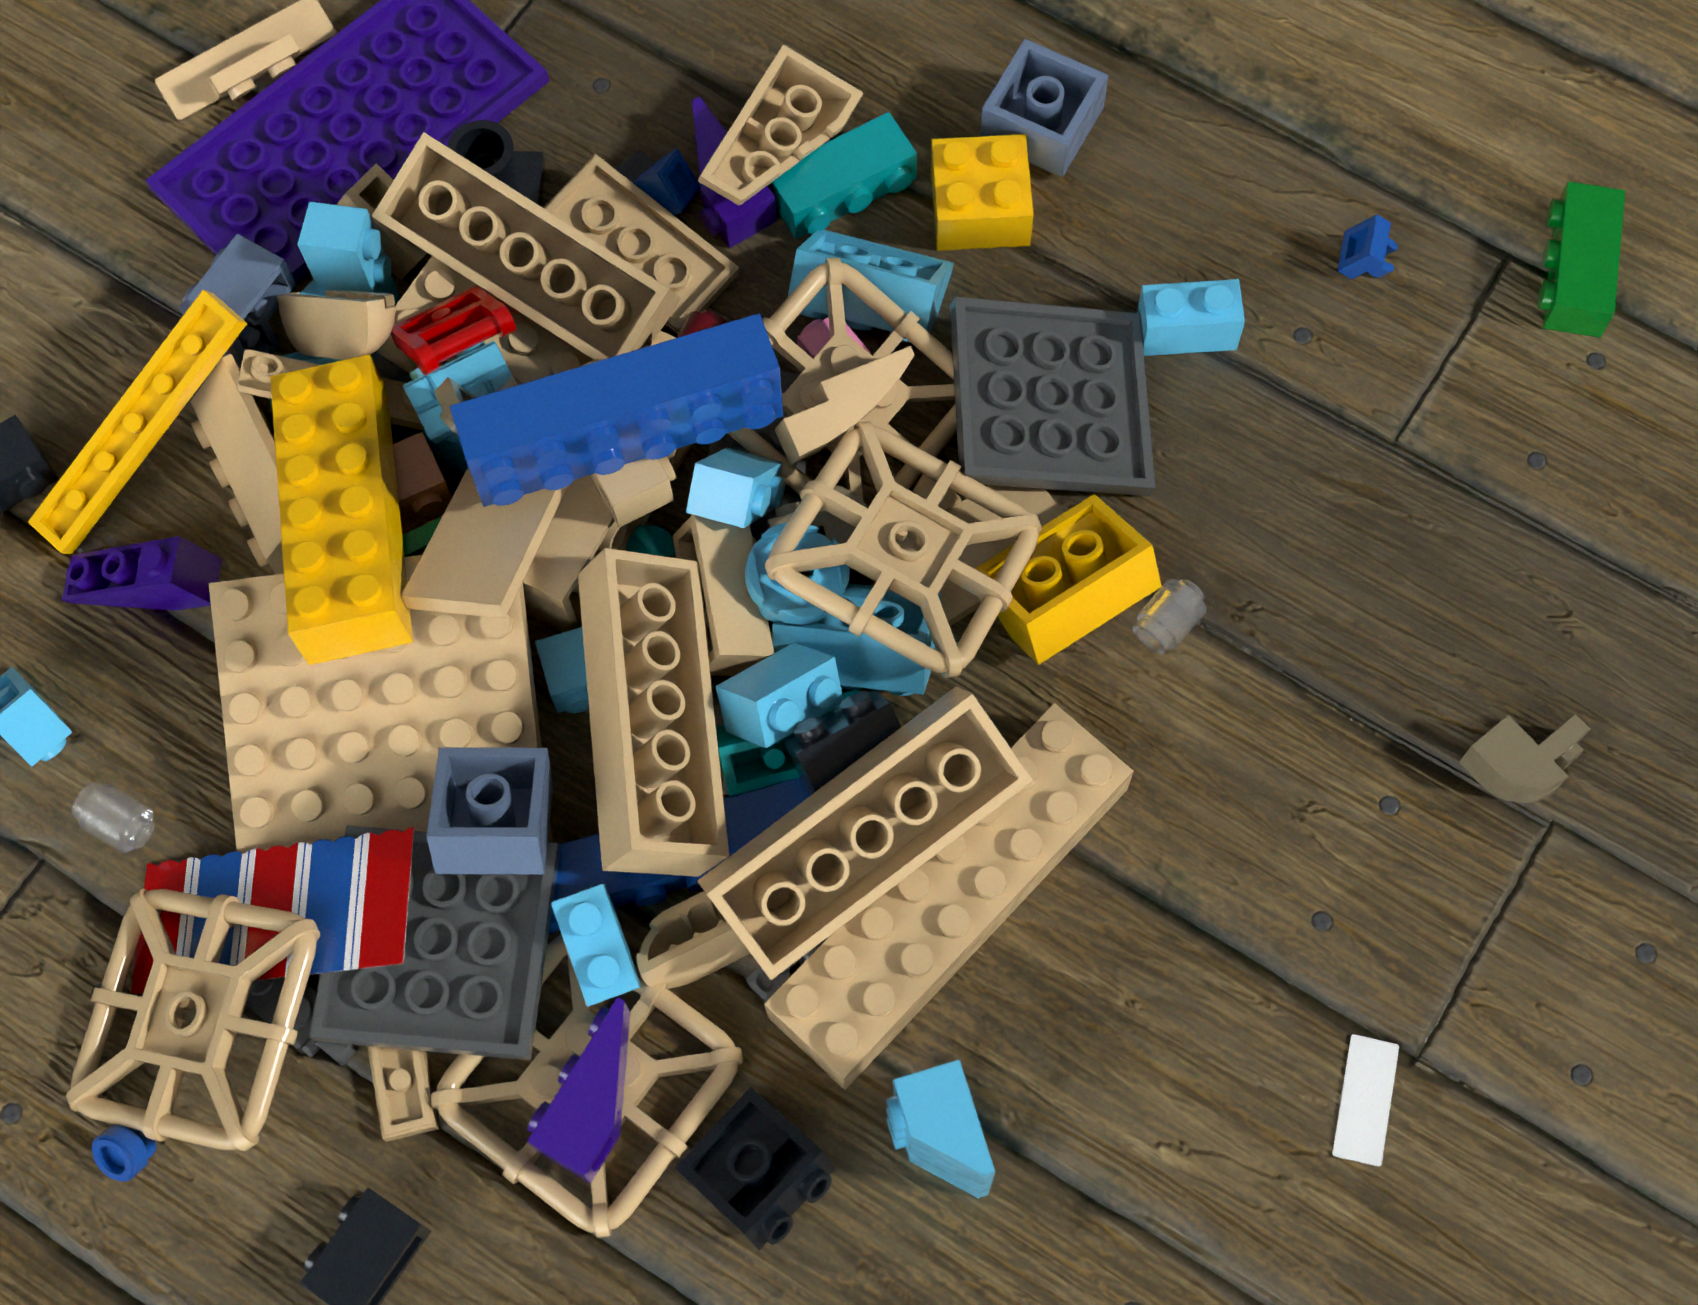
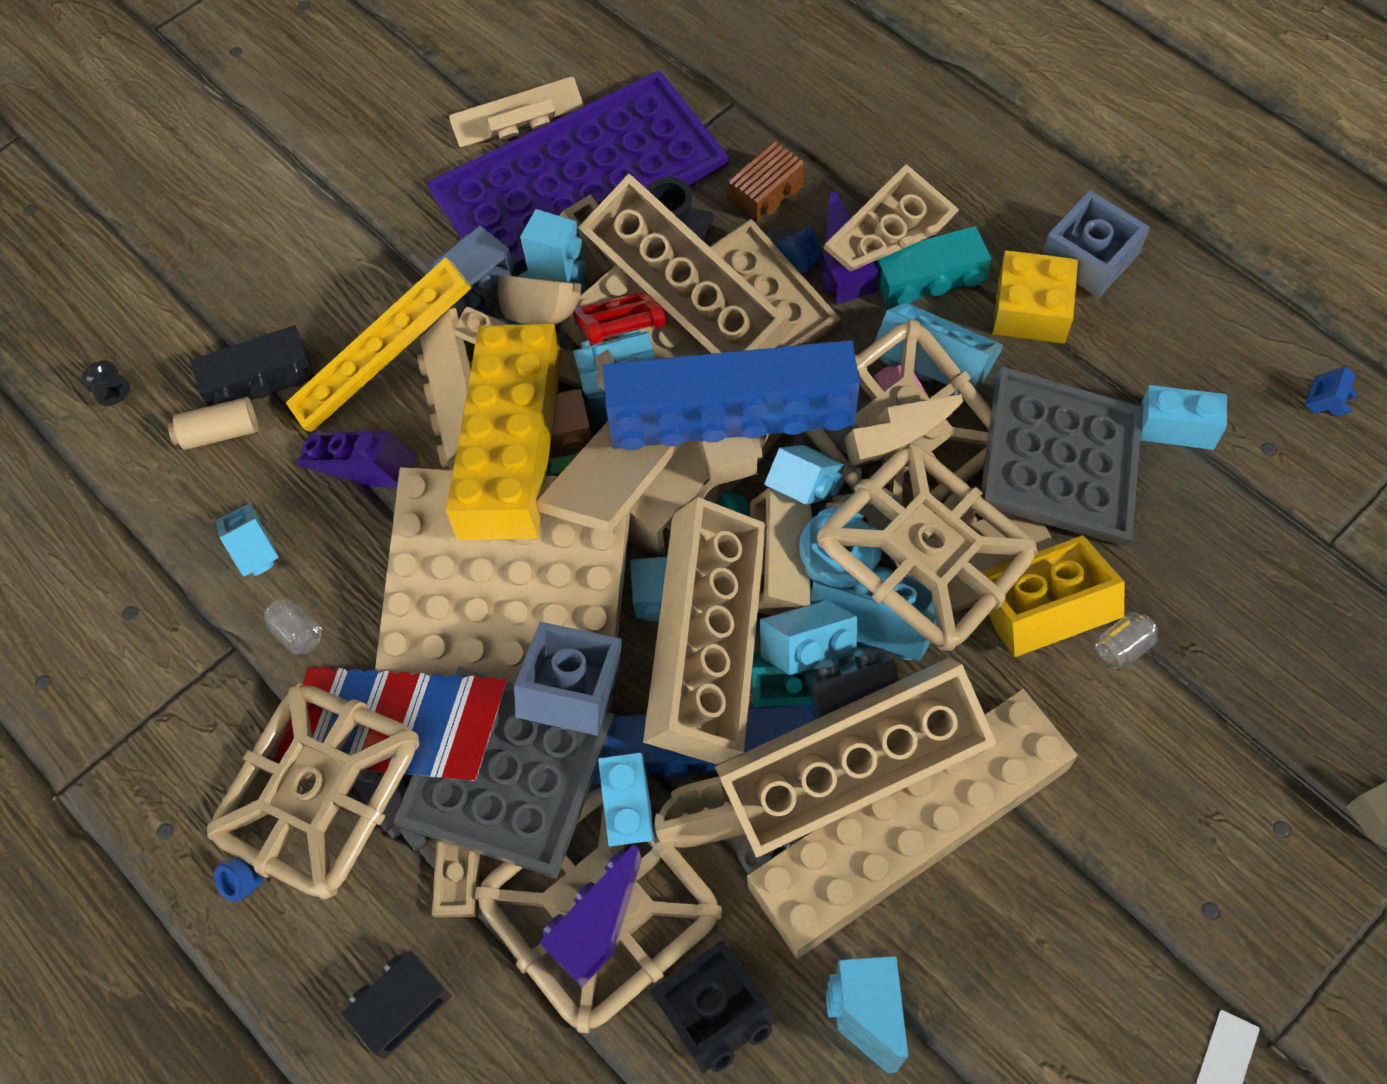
camera: 15 degrees right, 5 degrees down
(604, 96) = (766, 181): none -> dark orange brick

